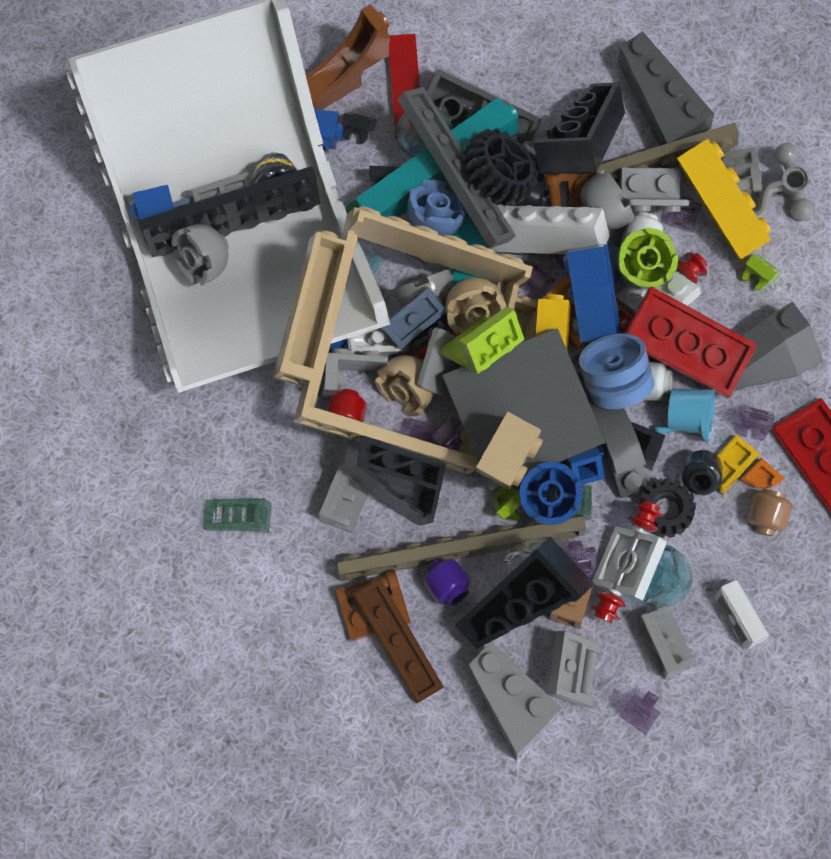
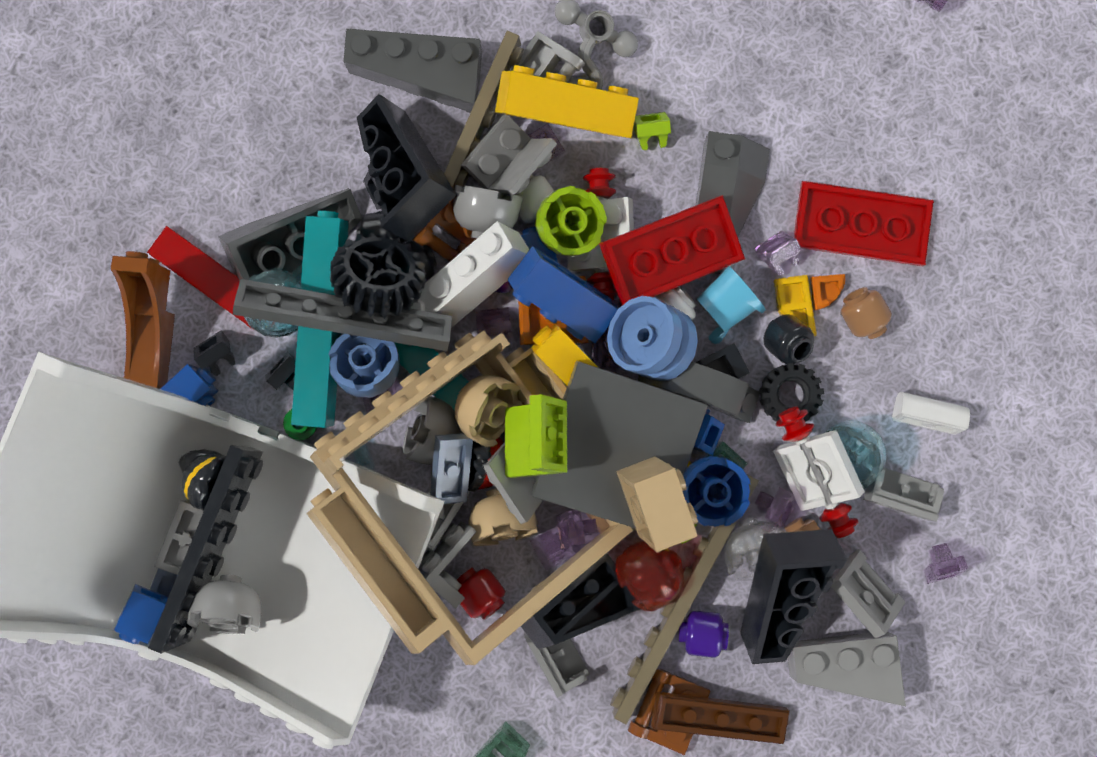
camera: 55 degrees left, 15 degrees up
(457, 507) = (650, 575): none -> clear red cylinder

